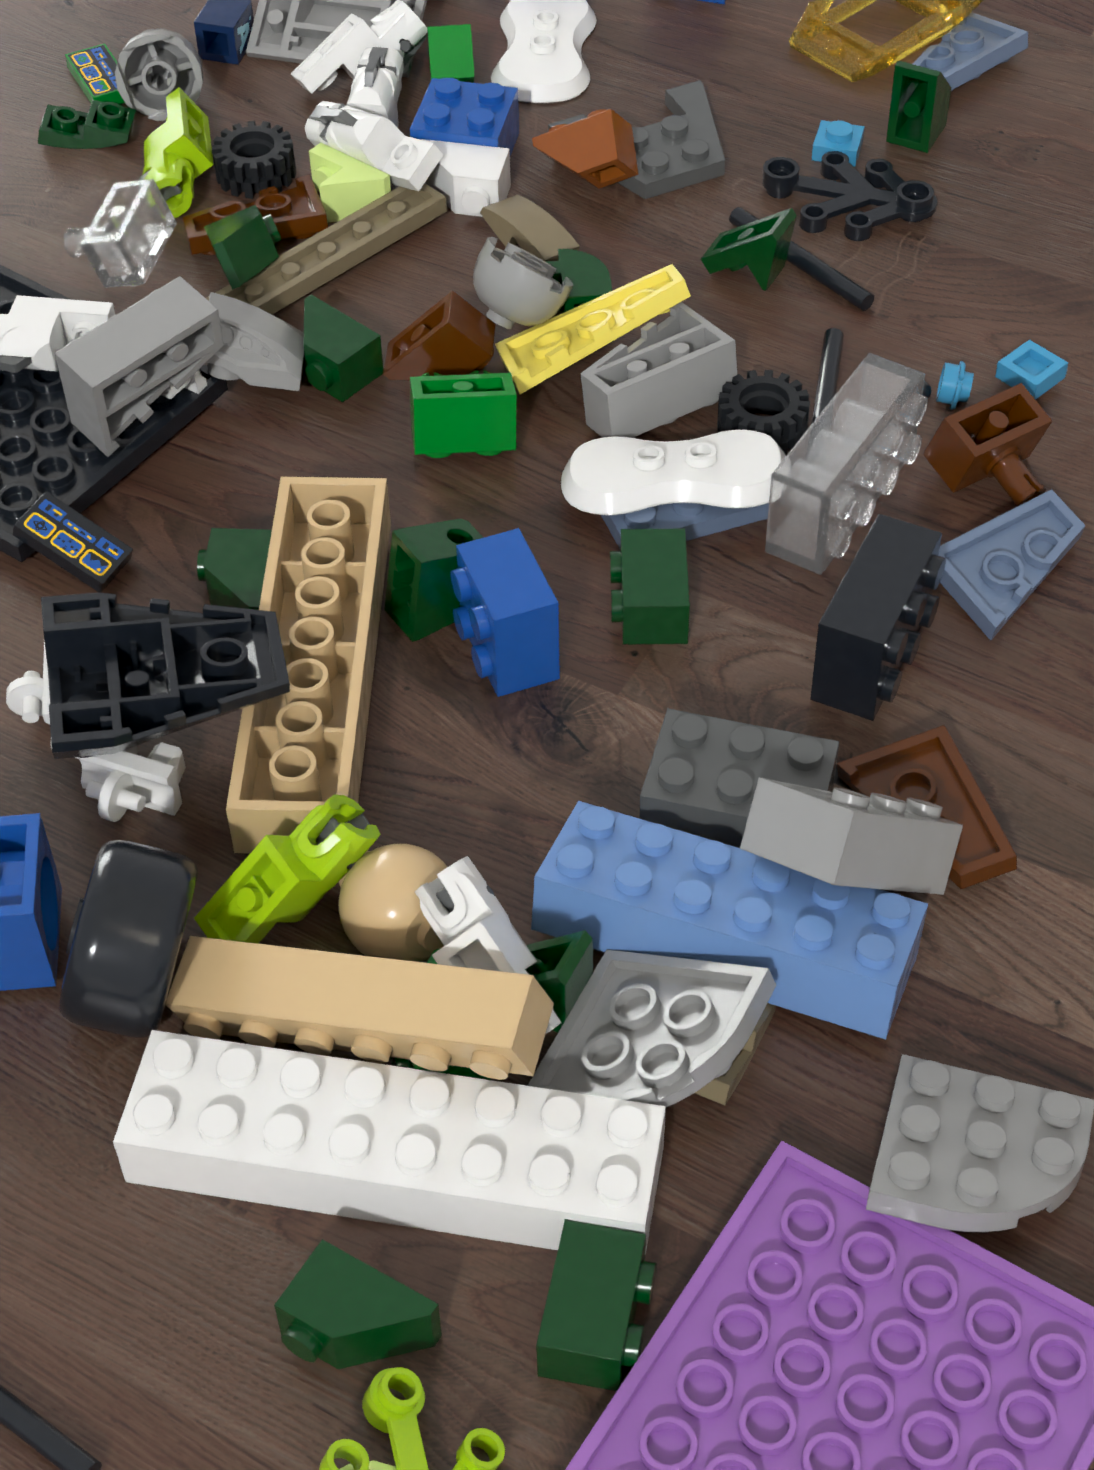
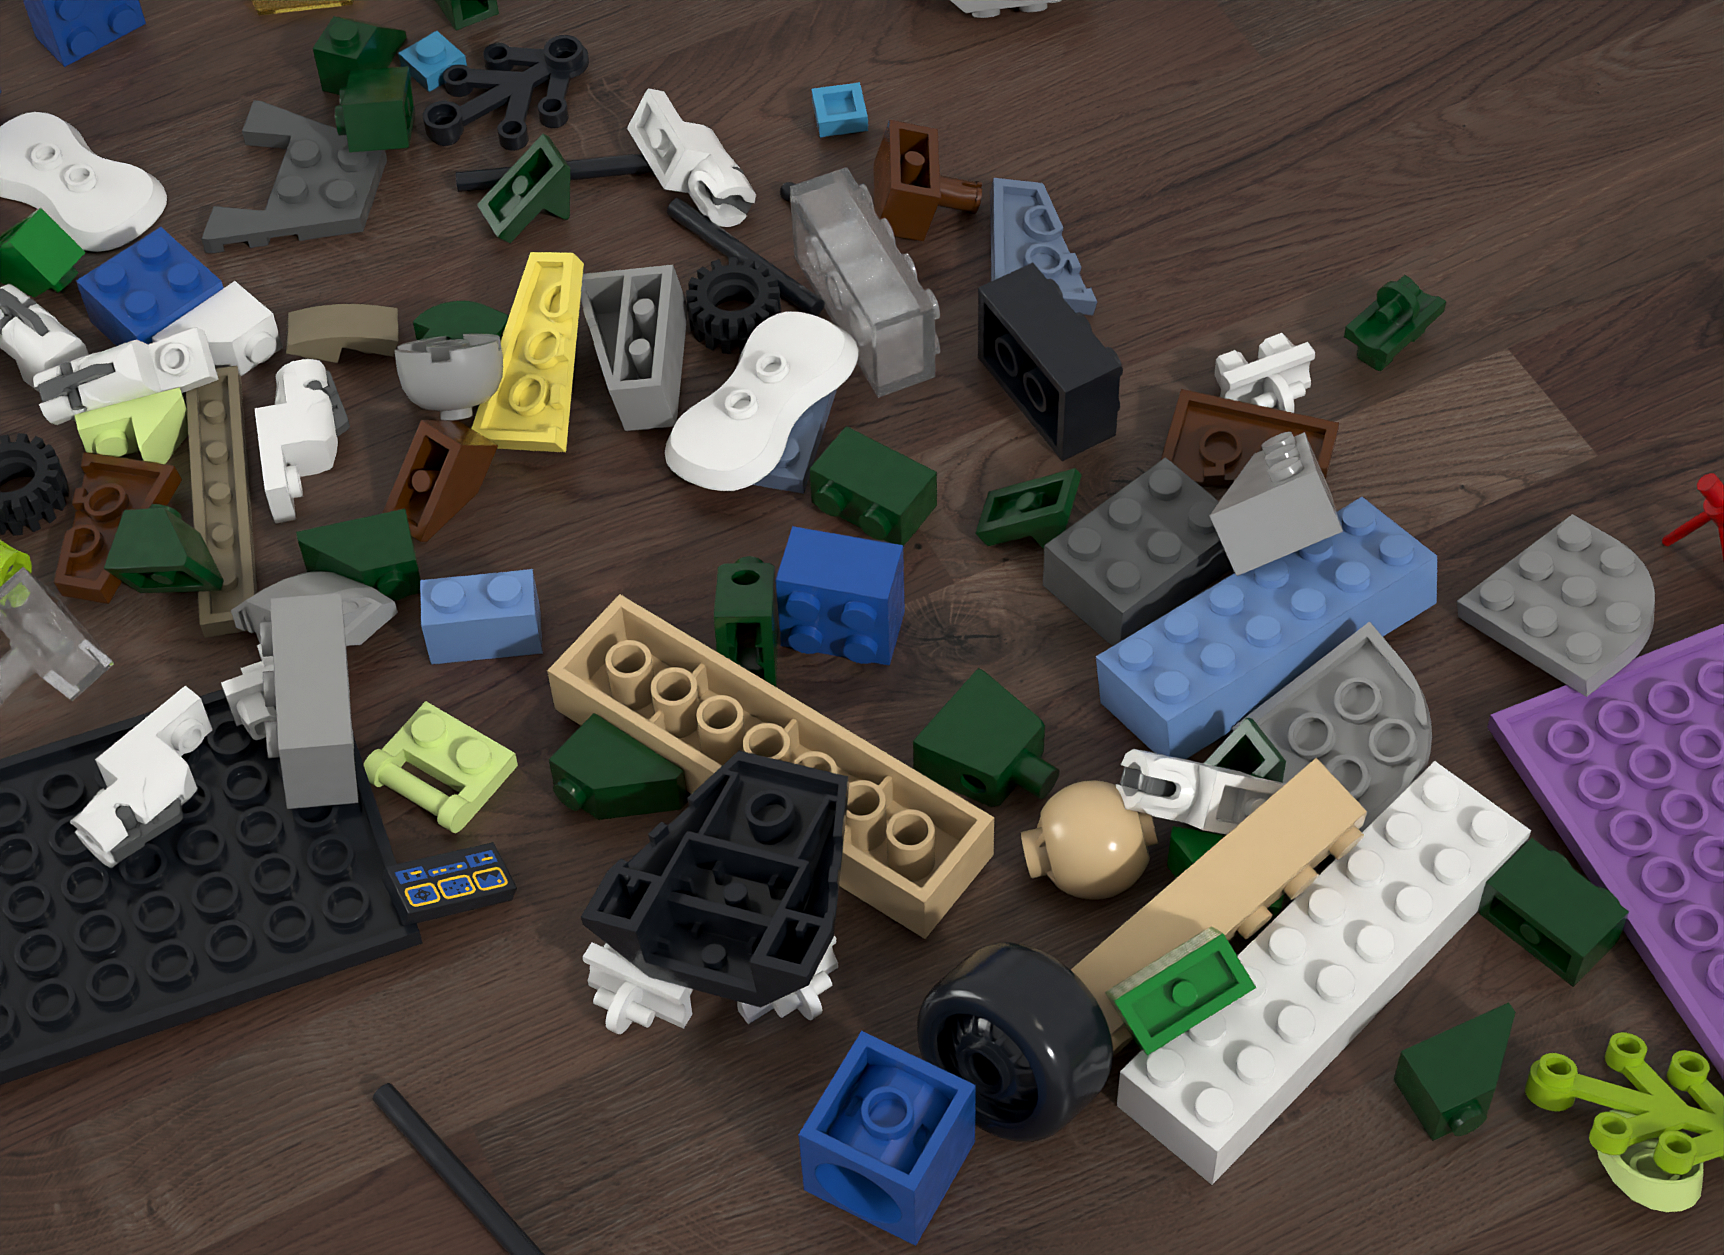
camera: 55 degrees left, 5 degrees up
(200, 492) = (450, 754): none -> yellowish green plate
(236, 1015) = (1180, 990): none -> green panel
(289, 873) = (1019, 876): lime plate -> none
(327, 430) = (481, 616): none -> medium blue brick
(408, 257) = (298, 432): none -> white plate
(452, 786) = (985, 745): none -> dark green torso
(463, 414) = (550, 502): green brick -> none
(593, 148) = (289, 227): dark orange slope -> none
(718, 692) = (1029, 509): none -> dark green slope
(743, 131) = (376, 109): none -> dark green brick
(795, 99) = (353, 46): none -> dark green slope
(878, 313) = (691, 160): none -> white plate
(954, 384) = (808, 162): dark azure plate -> none
(1022, 784) = (1270, 381): none -> white hips

